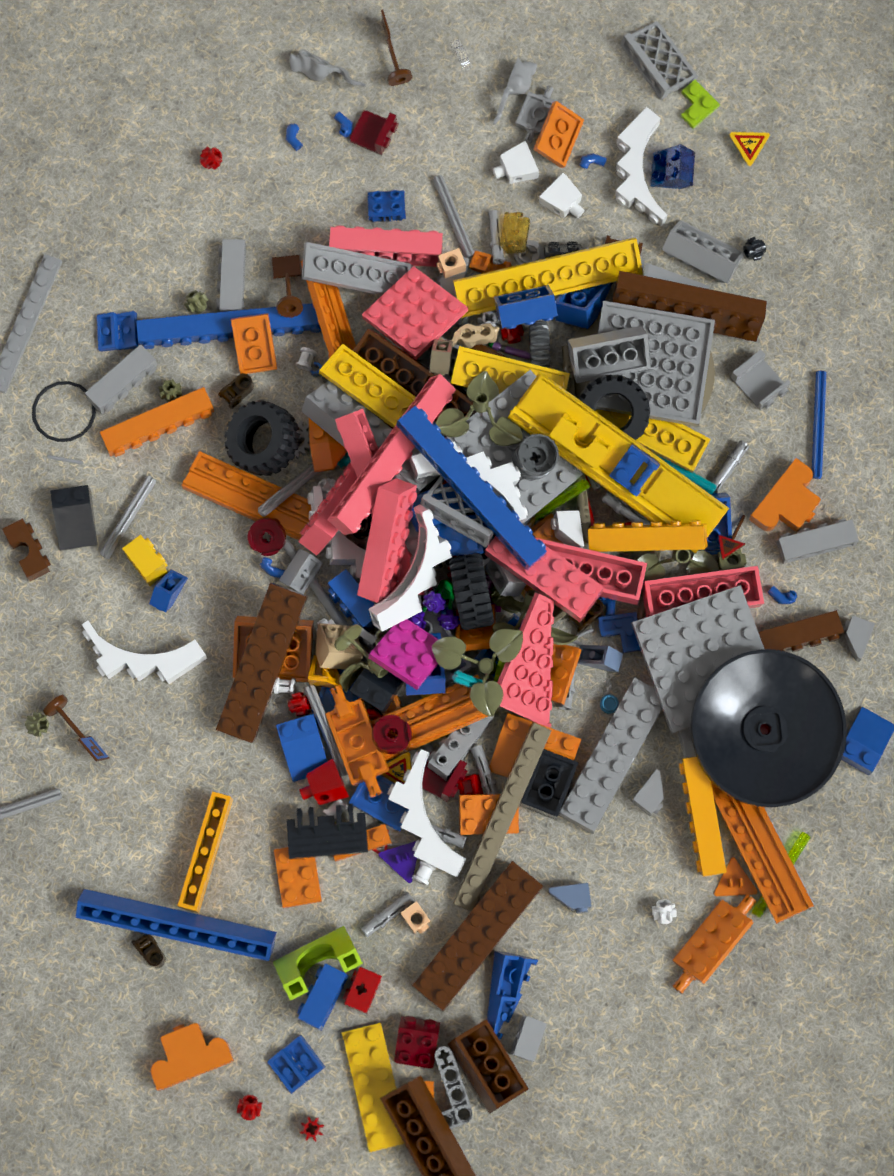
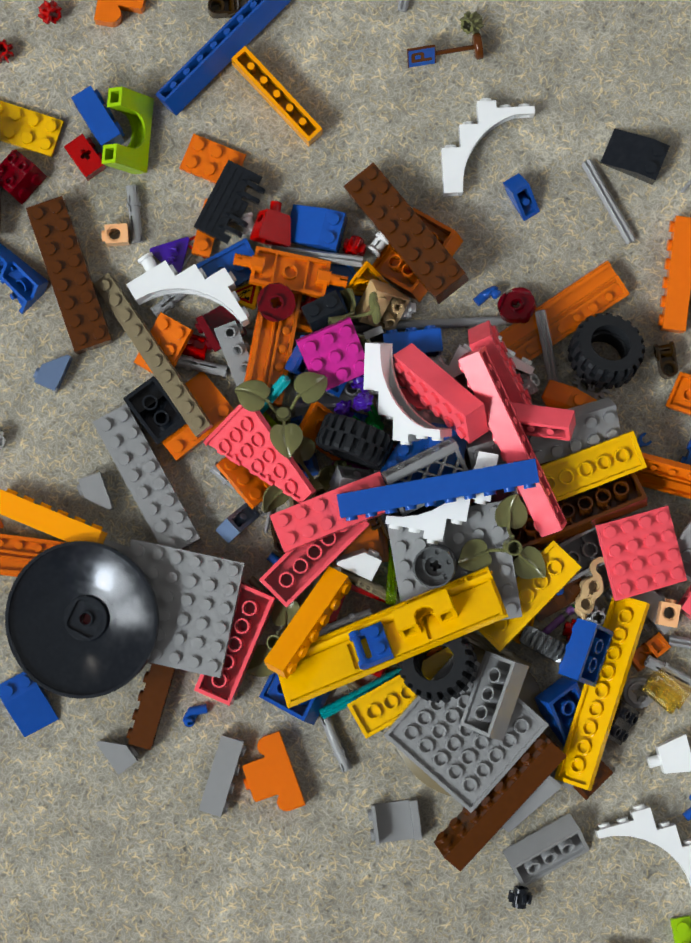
camera: 115 degrees right, 10 degrees up
(21, 535) = (614, 101): reddish brown arch -> none
(145, 560) = (558, 190): yellow brick -> none
(288, 1069) = (61, 61): blue slope -> none
(301, 571) = (466, 313): light grey hinge -> none
(306, 359) = (659, 436): white bush -> none
(441, 357) = (582, 546): dark tan brick -> none
(609, 704) = (194, 506): dark azure plate -> none
(620, 625) = (254, 558): blue plate -> none
(673, 167) = (641, 874): clear blue slope -> none
(729, 546) = (263, 695): piece -> none
(738, 556) = (257, 682): olive brick -> none
(818, 427) = (325, 847): blue axle -> none

